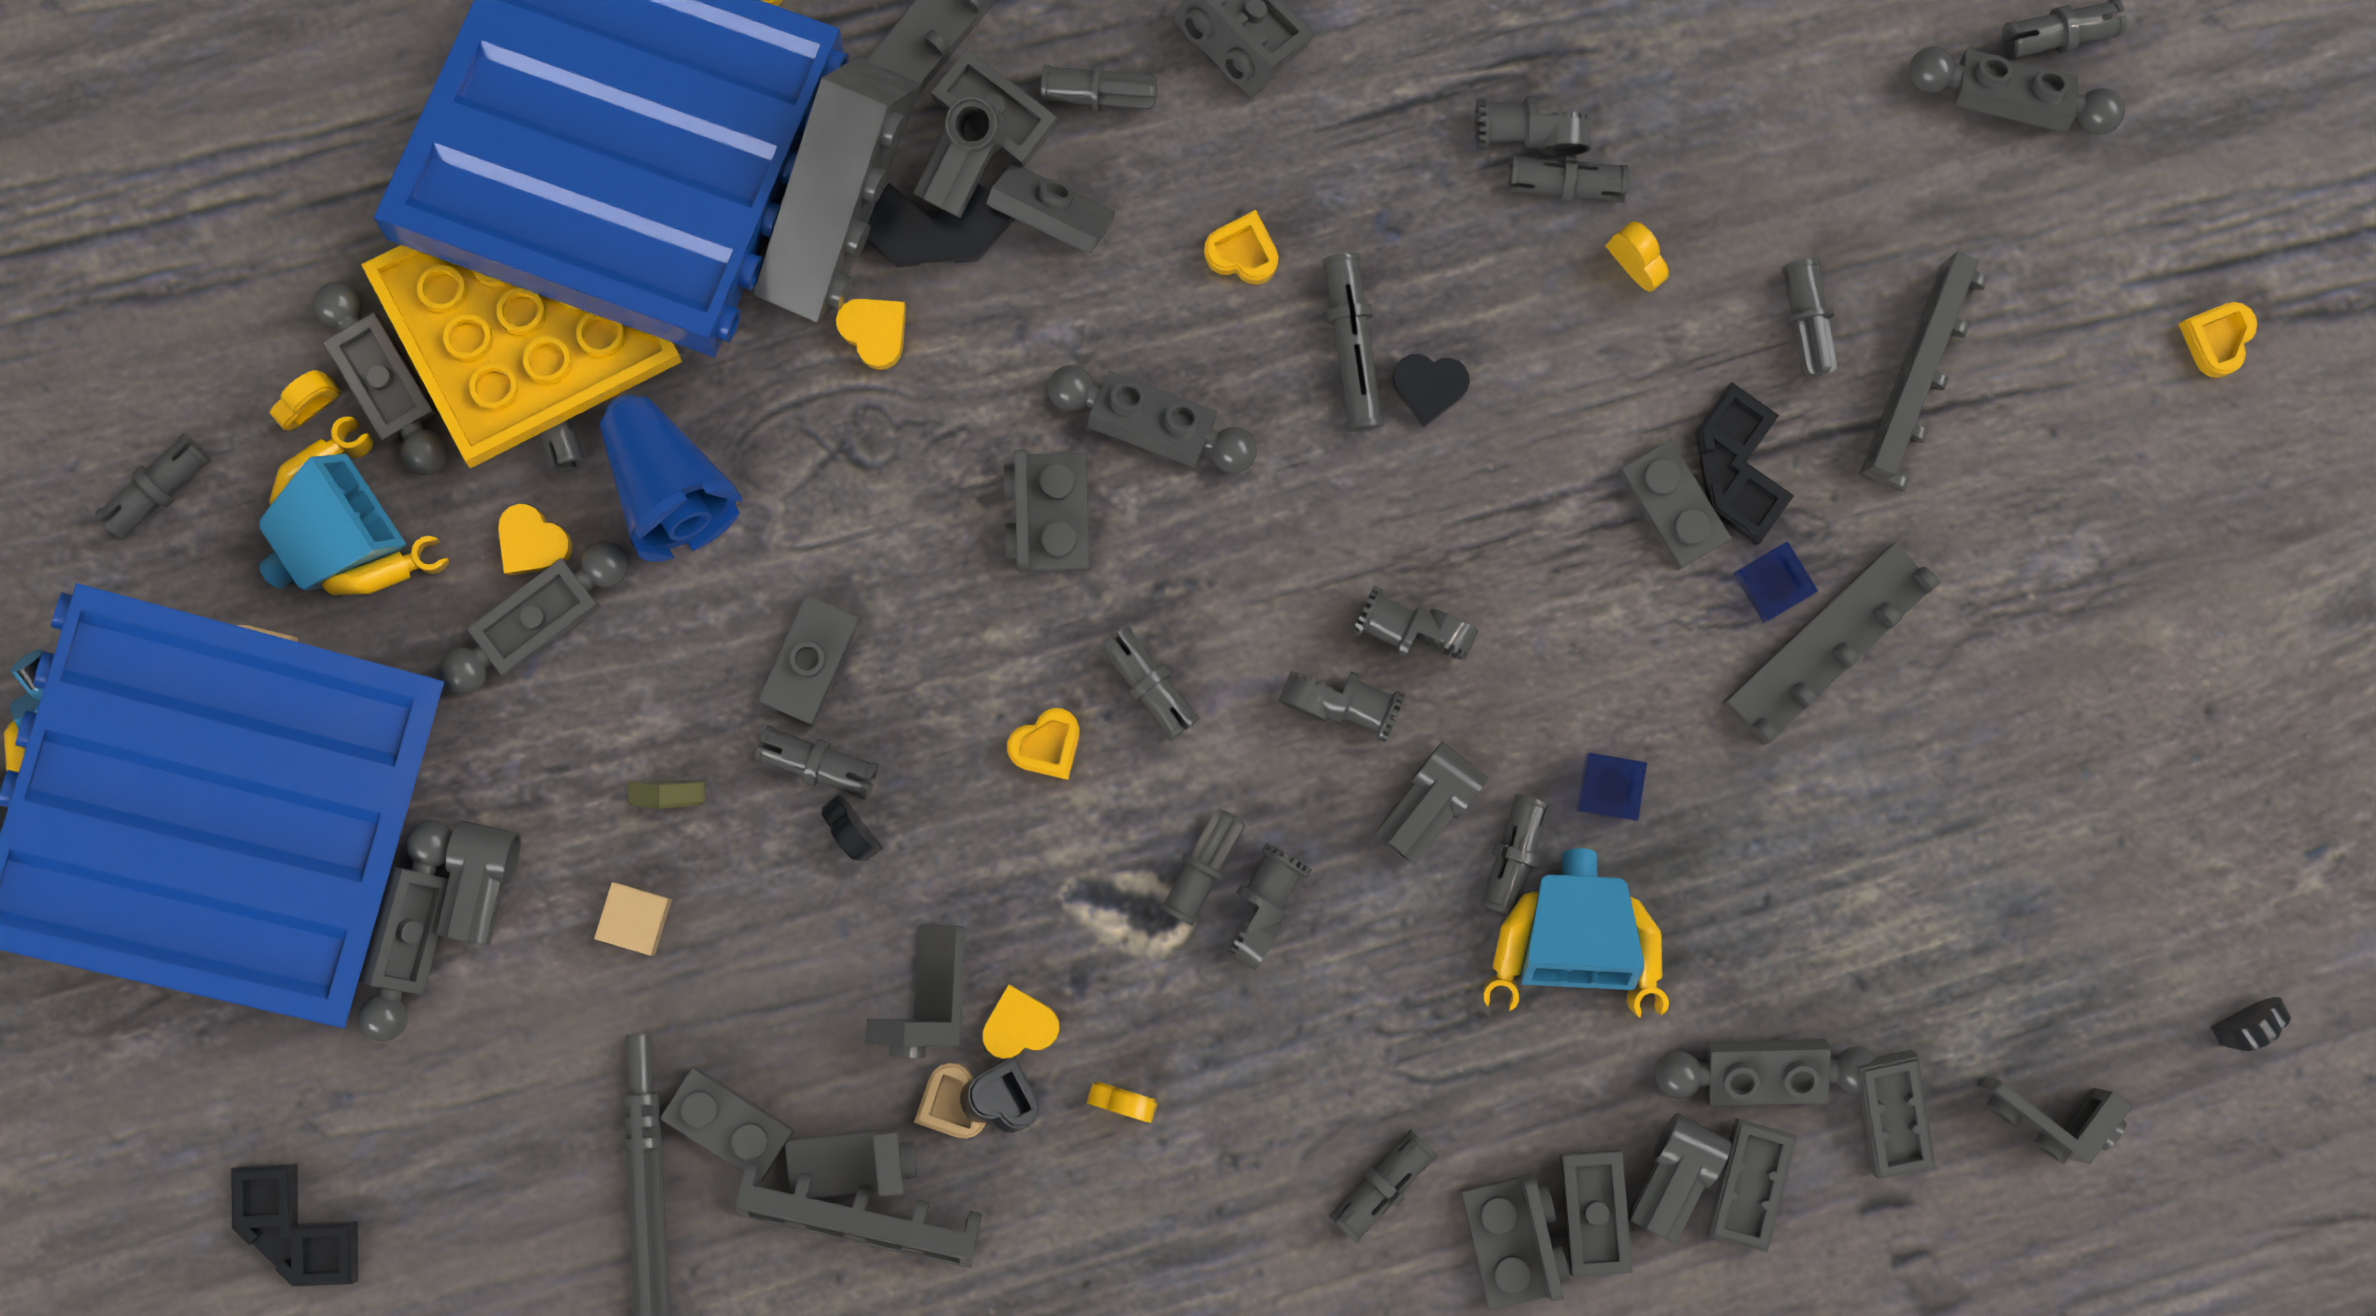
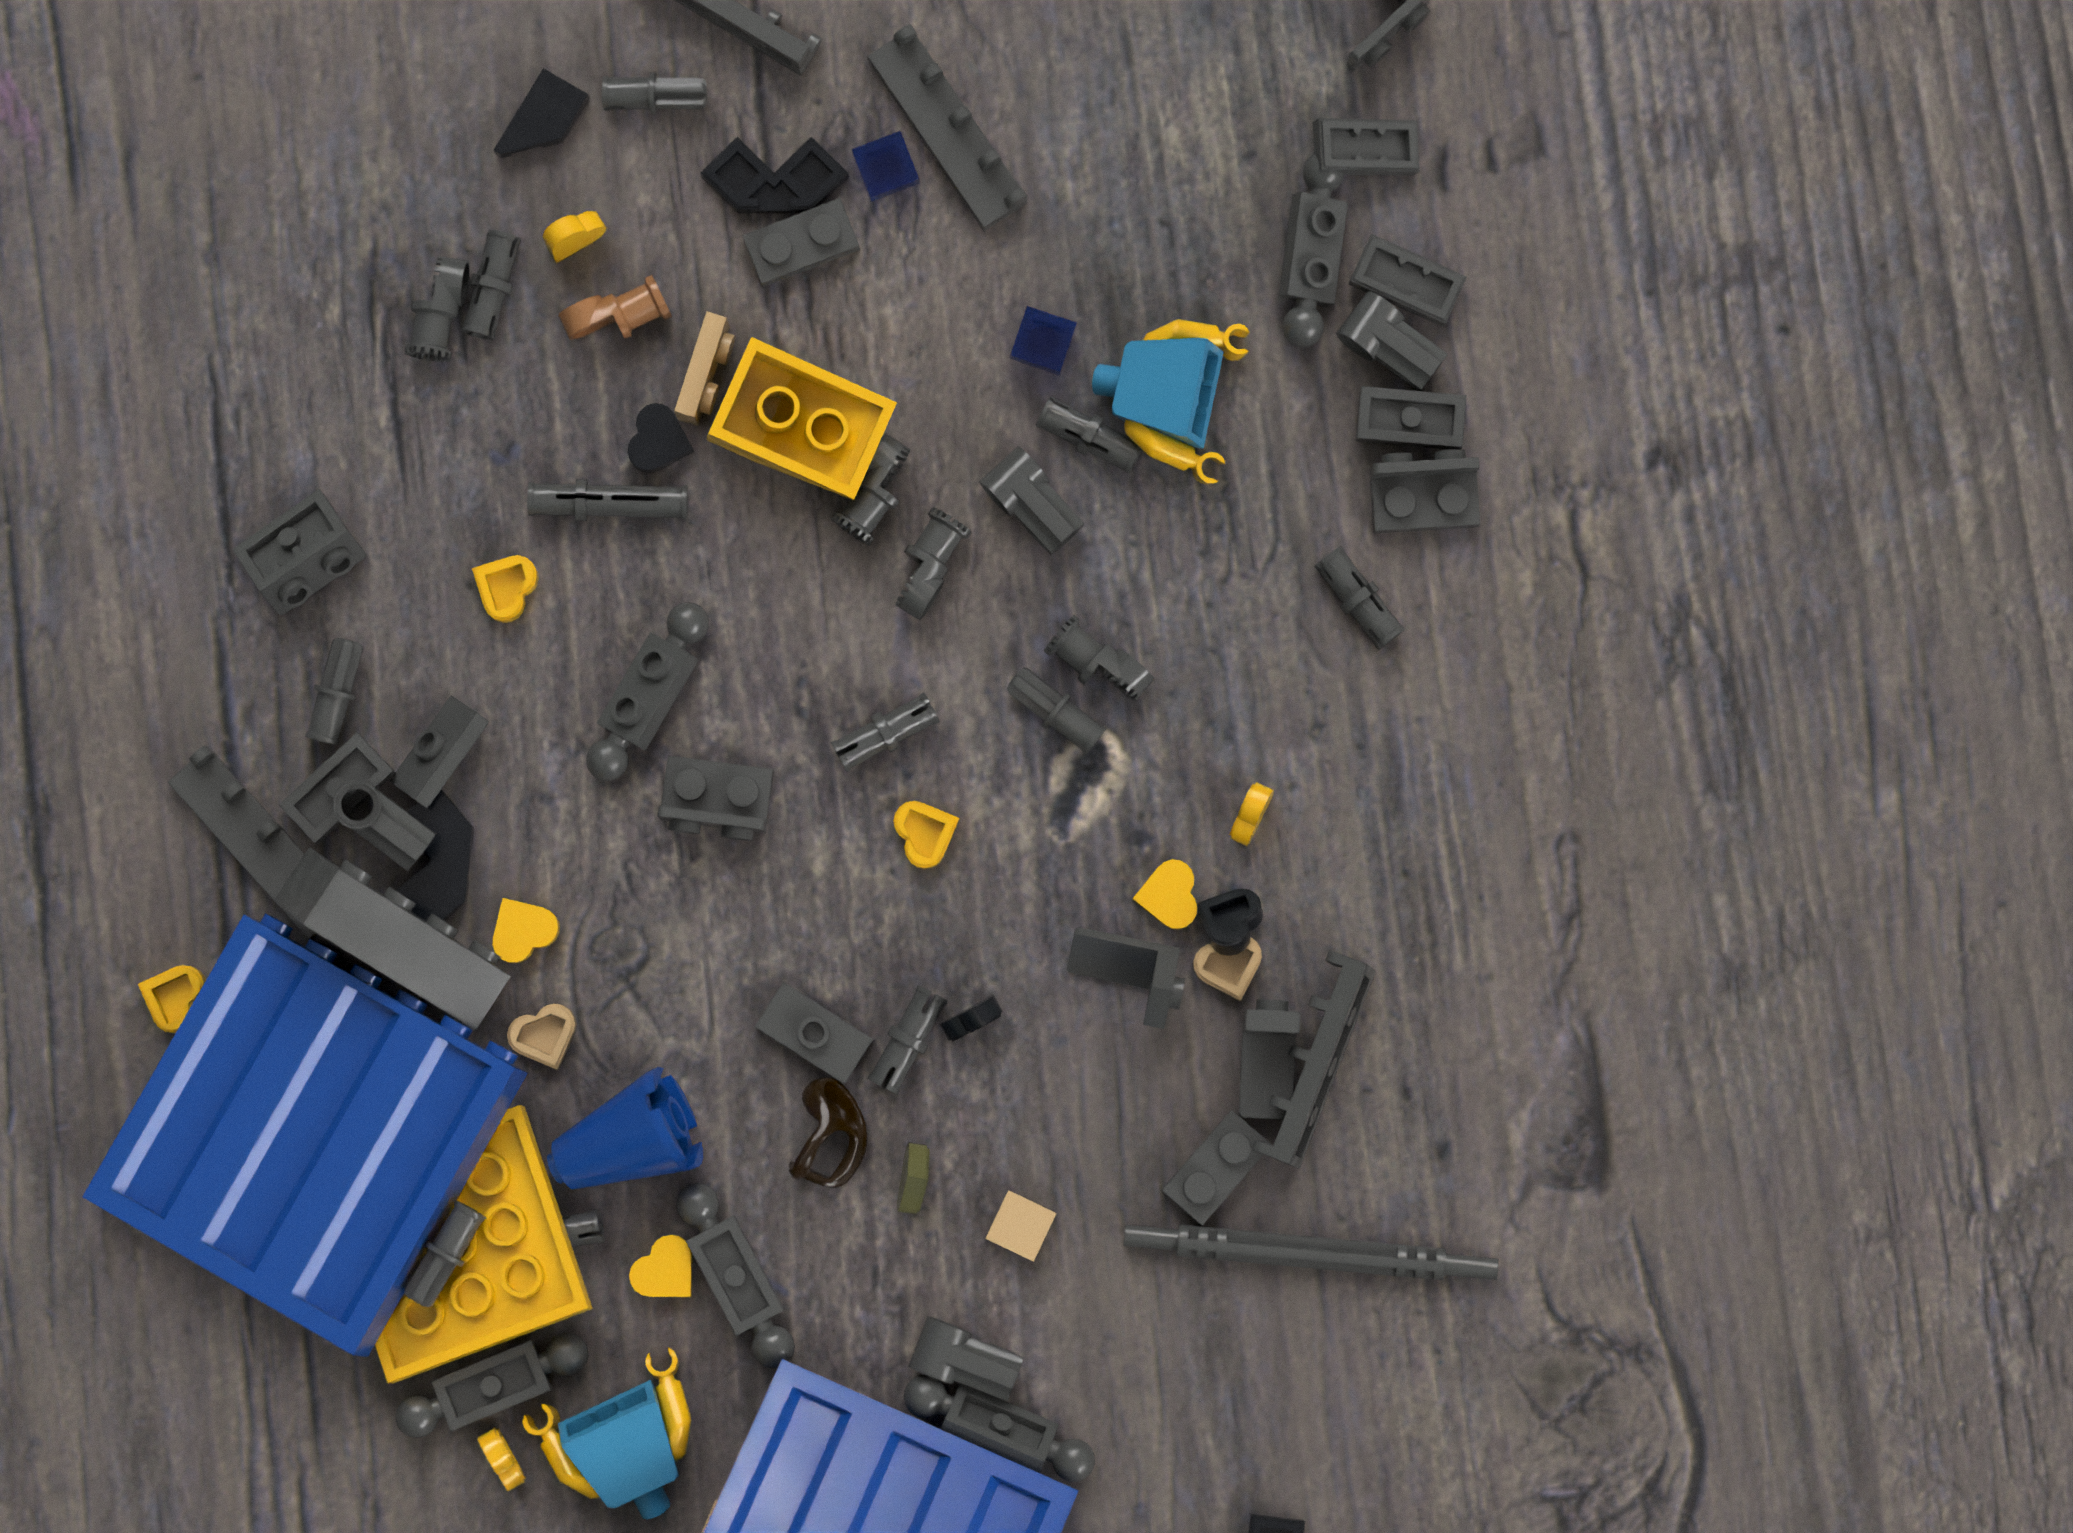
camera: 85 degrees left, 0 degrees up
(503, 299) = (443, 1254): none -> dark grey axle
(725, 694) = (836, 1111): none -> dark brown piece
(764, 372) = (544, 1035): none -> tan tile
(1476, 533) = (801, 419): none -> yellow slope
(1490, 418) = (698, 391): none -> tan plate
(1564, 326) = (627, 310): none -> medium nougat connector
(1763, 204) = (543, 116): none -> black tile

